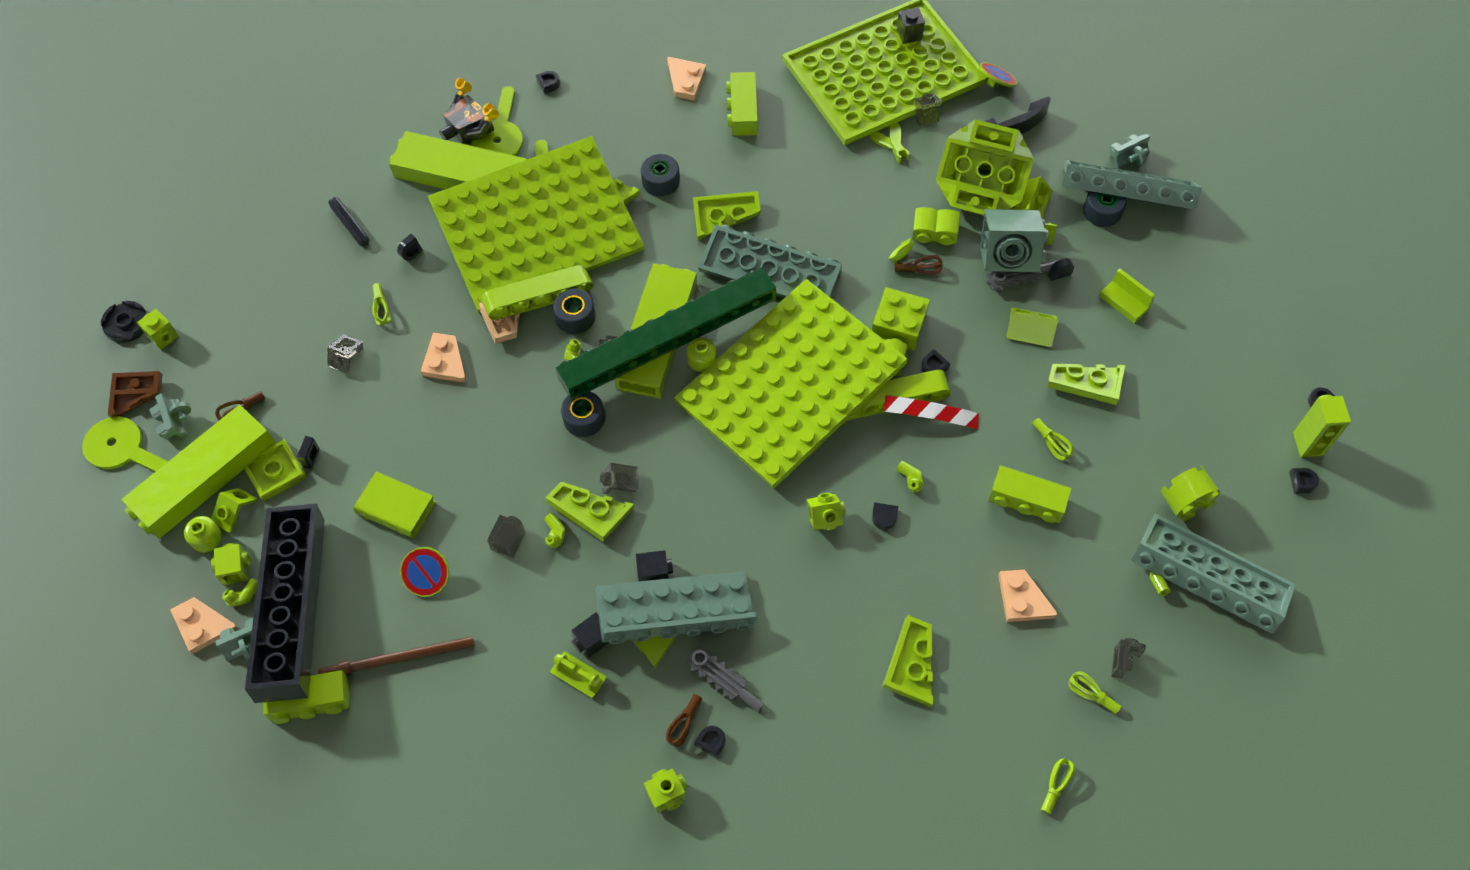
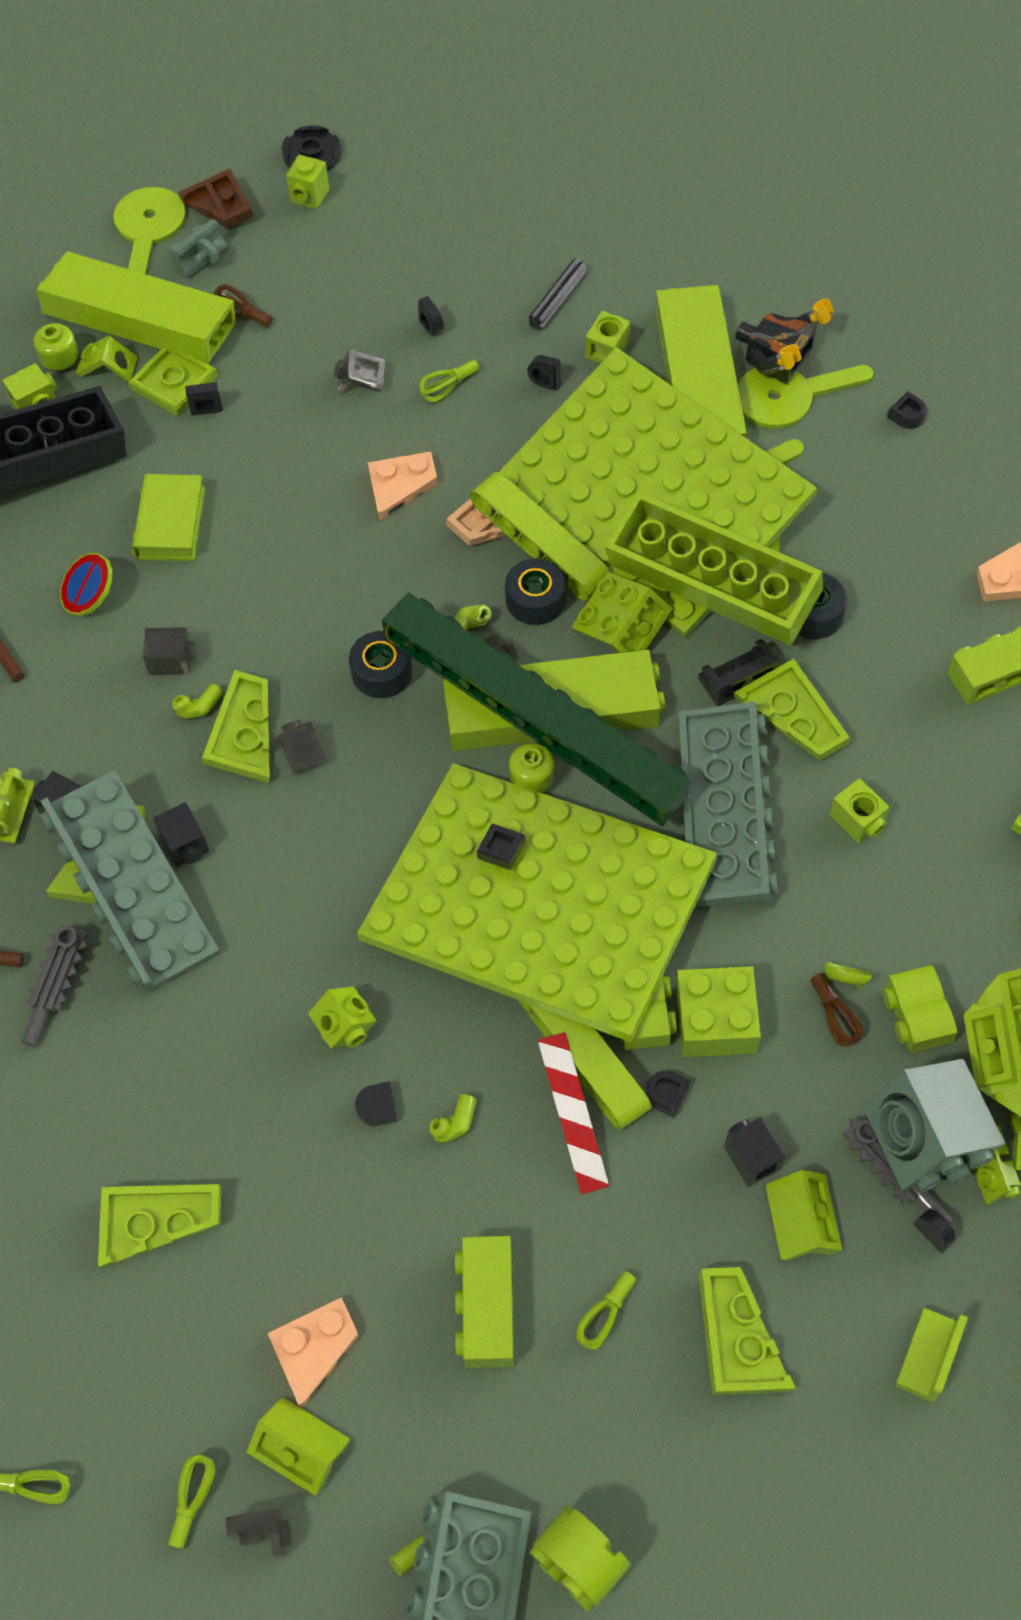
camera: 70 degrees right, 0 degrees up
(324, 296) = (430, 316): none -> black tile
(405, 206) = (605, 335): none -> lime brick
(616, 271) = (622, 614): none -> lime bracket
(621, 205) = (714, 568): none -> lime brick
(684, 229) = (735, 674): none -> black hinge
(752, 384) = (501, 846): none -> black tile
(805, 206) = (862, 798): none -> lime brick
(988, 333) = (753, 1150): none -> black brick
(1081, 622) = (297, 1445): none -> lime panel

